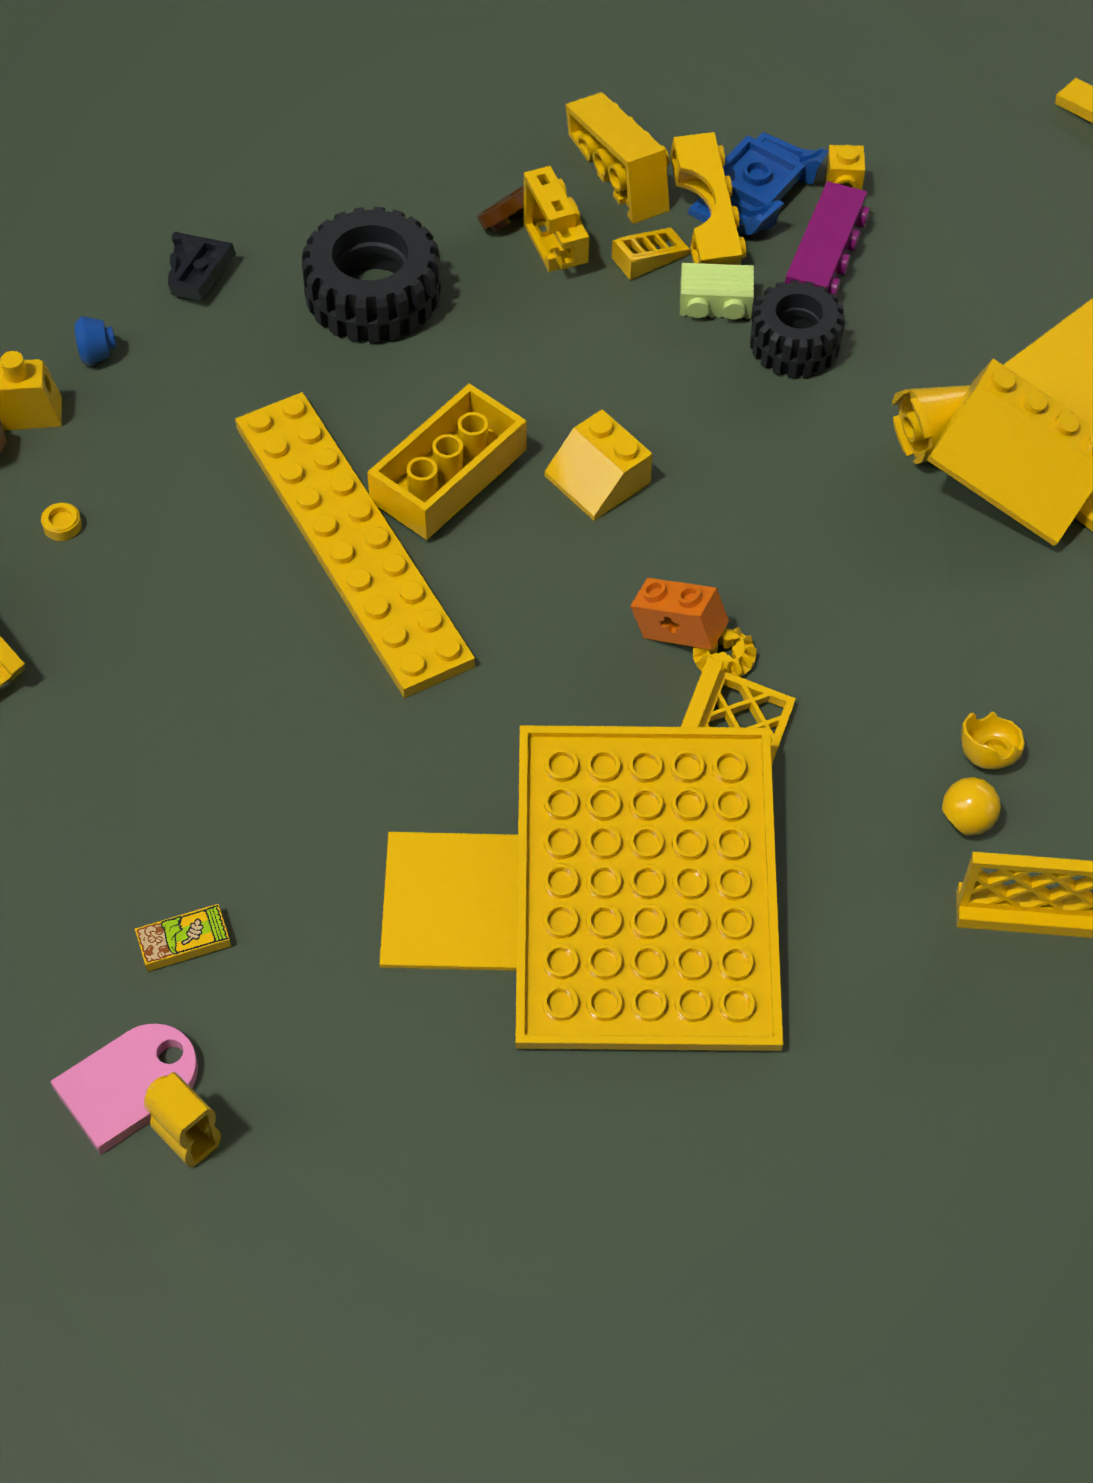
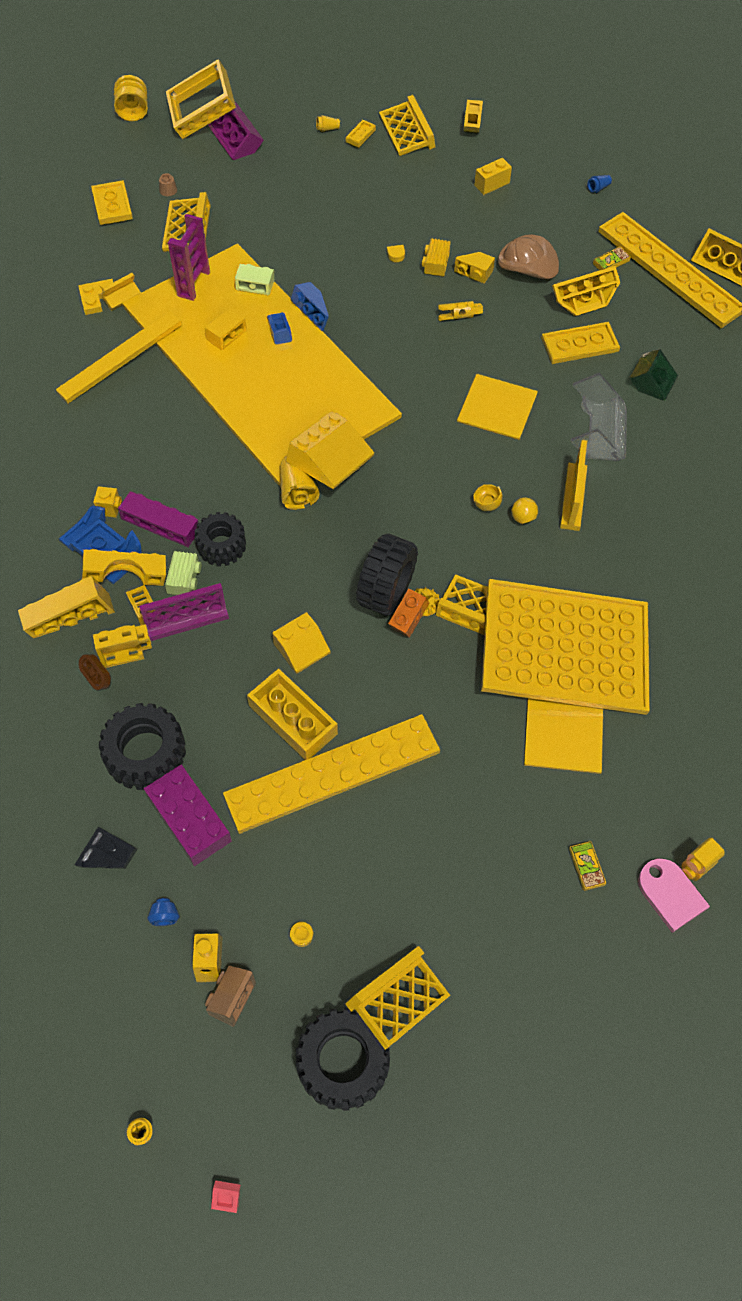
camera: 85 degrees left, 5 degrees up
(257, 348) = (188, 815): none -> magenta brick
(630, 295) = (182, 620): none -> magenta fence
(745, 545) = (386, 574): none -> black tyre

